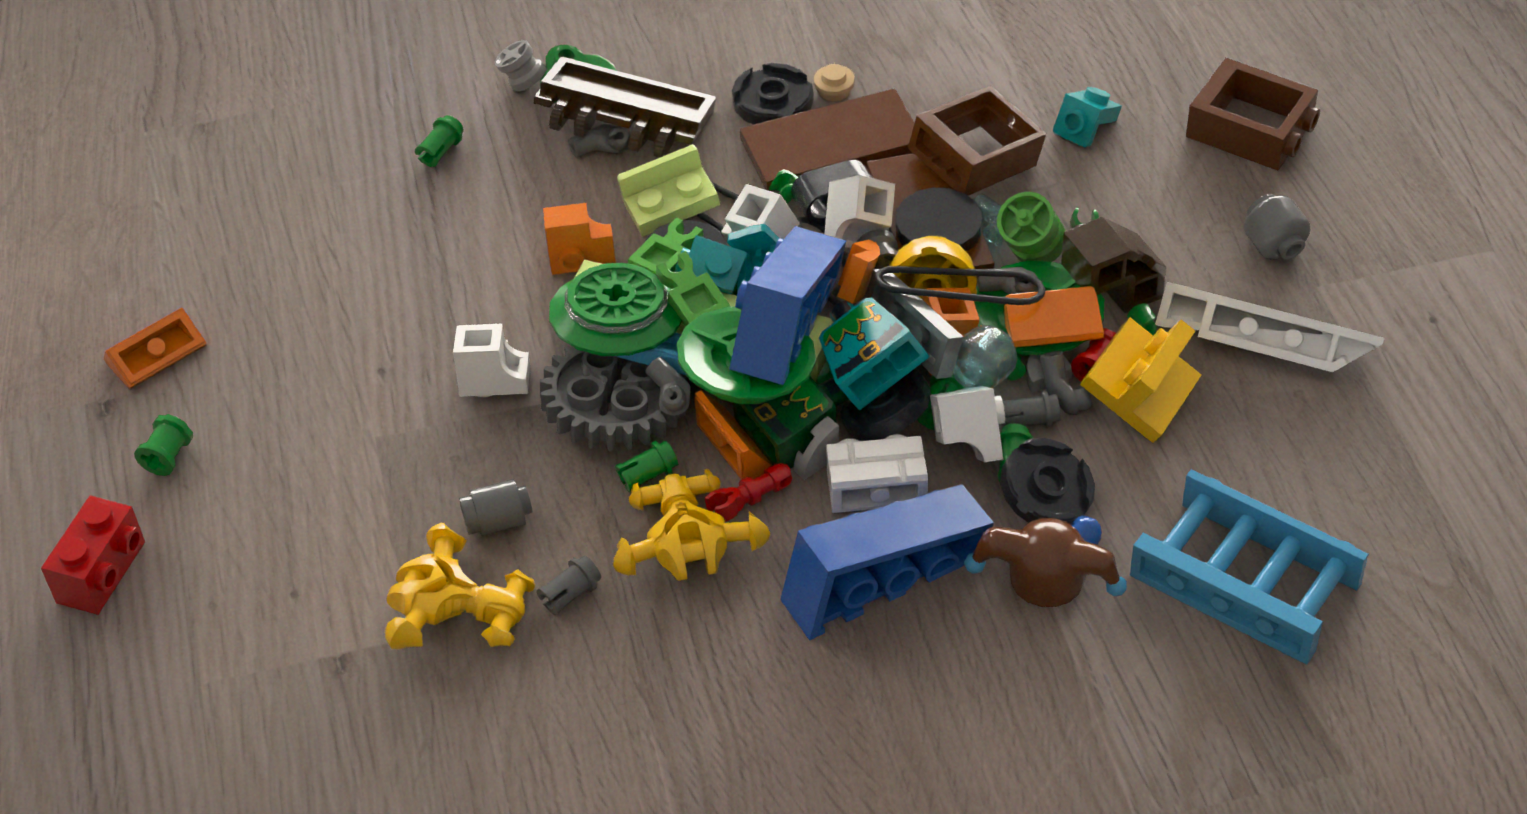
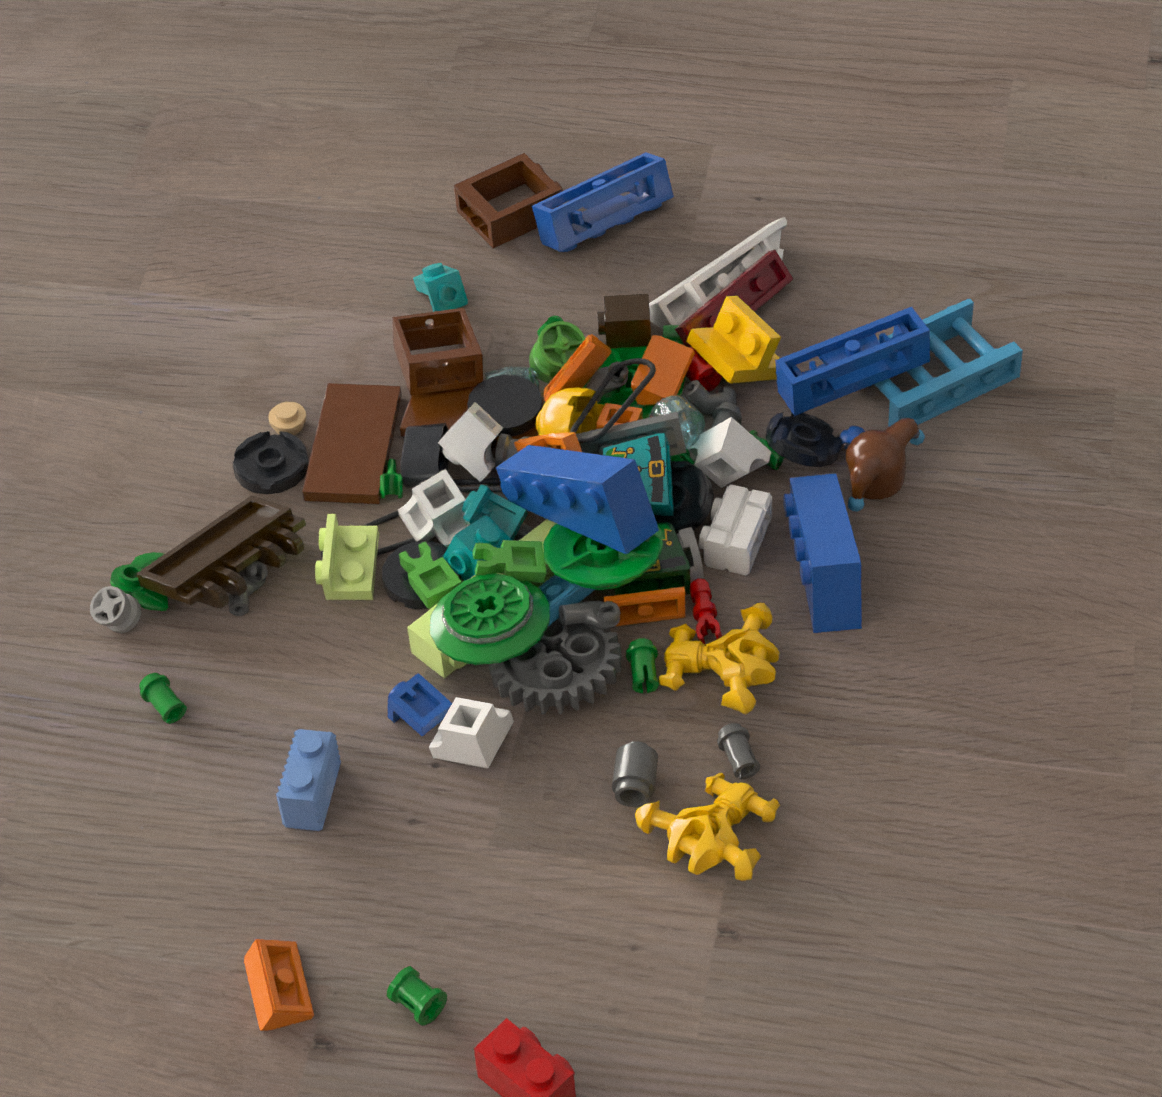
camera: 65 degrees left, 0 degrees up
(378, 269) = (308, 779): none -> medium blue brick
(504, 305) = (417, 704): none -> blue bracket
(576, 238) = (362, 635): orange brick -> none
(1001, 245) = (579, 366): none -> orange slope
(1166, 471) = (853, 361): none -> blue brick
(1244, 354) = (753, 287): none -> dark red tile
(1277, 227) = (635, 230): dark grey head -> none
(1350, 212) = (600, 195): none -> blue brick

